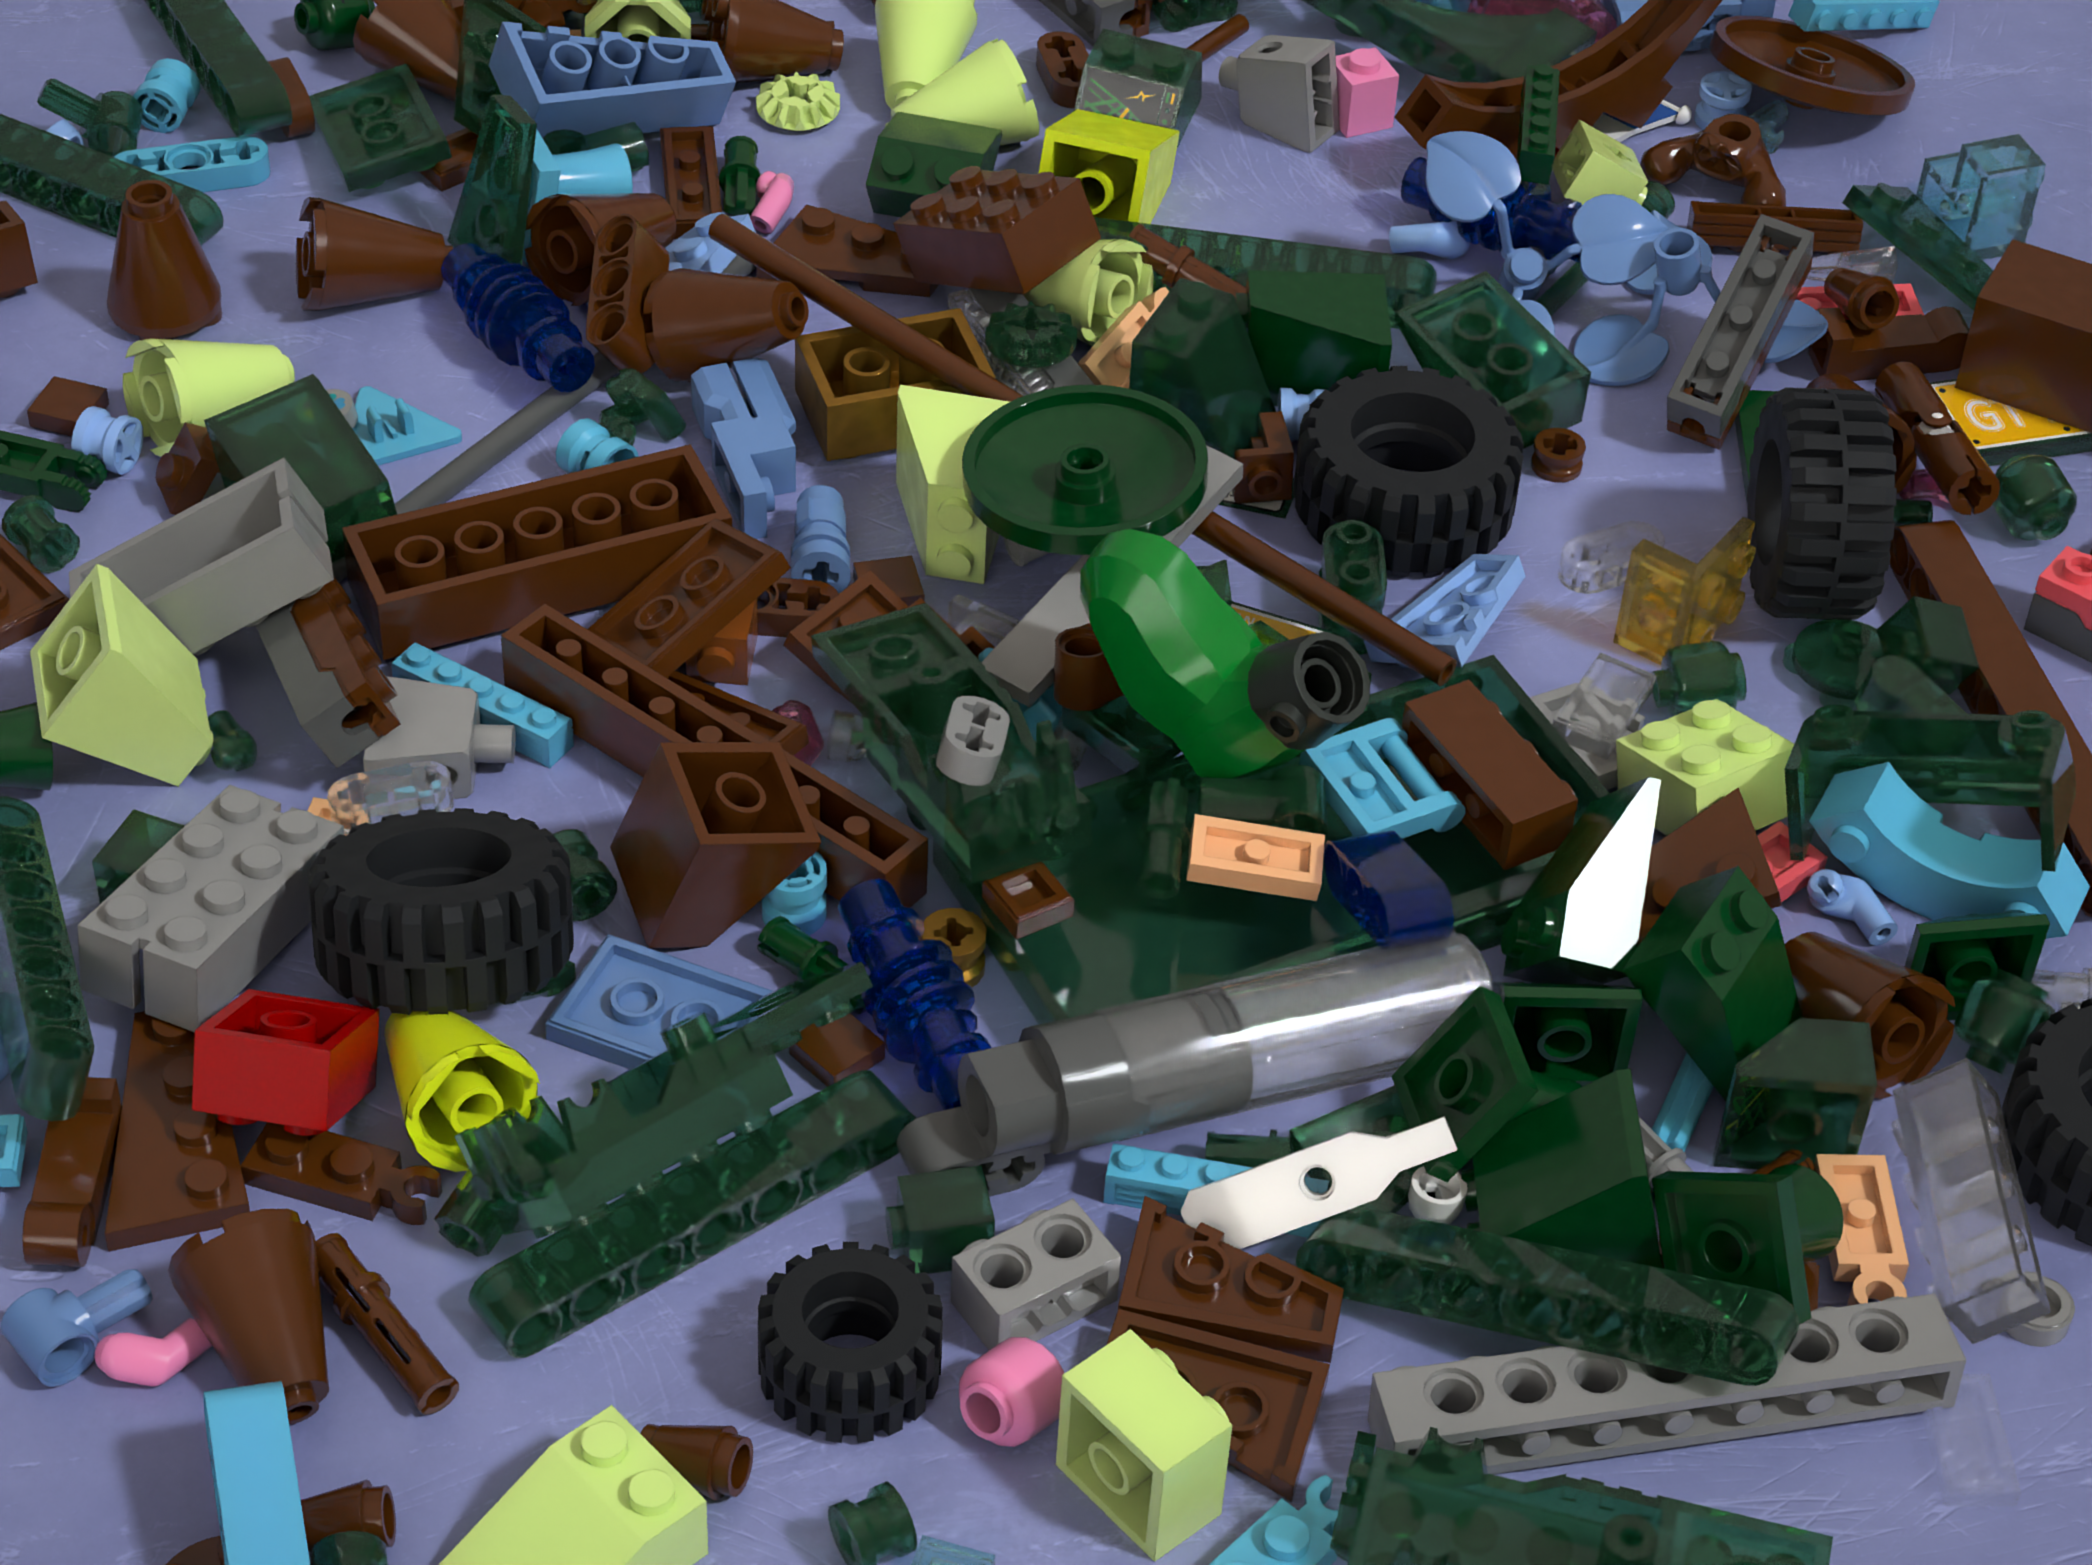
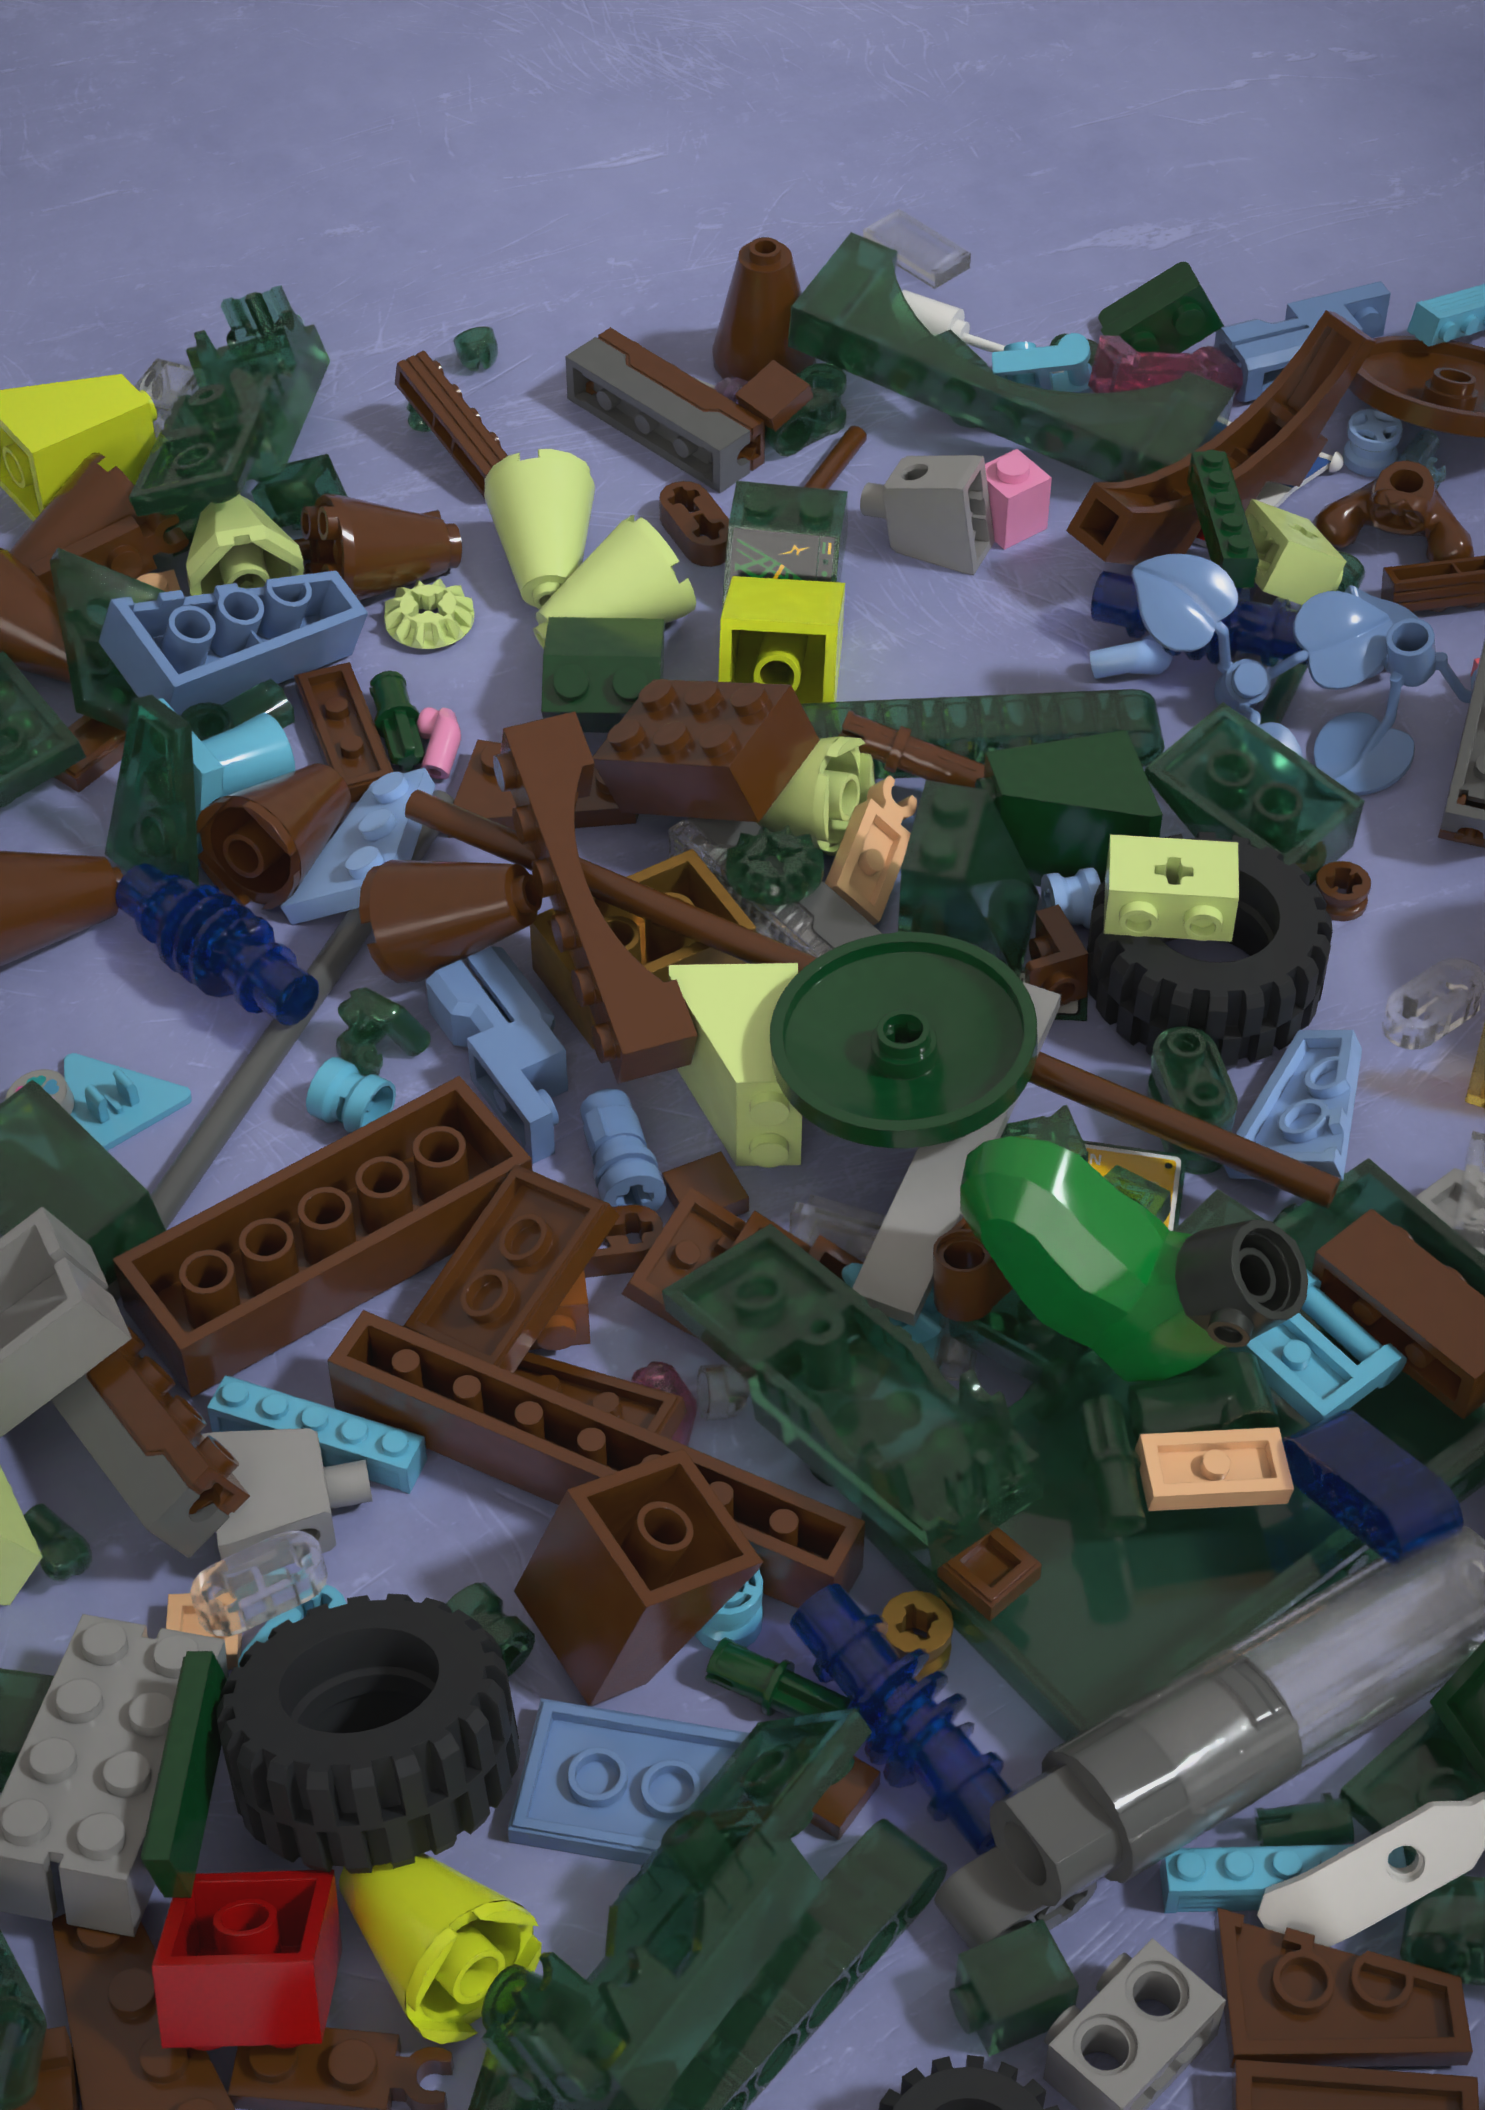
camera: 10 degrees left, 5 degrees up
(269, 907) = (185, 1777): none -> dark green tile
(622, 270) = (325, 882): reddish brown beam -> none
(862, 420) = (637, 1016): none -> reddish brown arch
(972, 740) = (901, 1414): light grey beam -> none
(1374, 399) = (1171, 888): none -> yellowish green brick

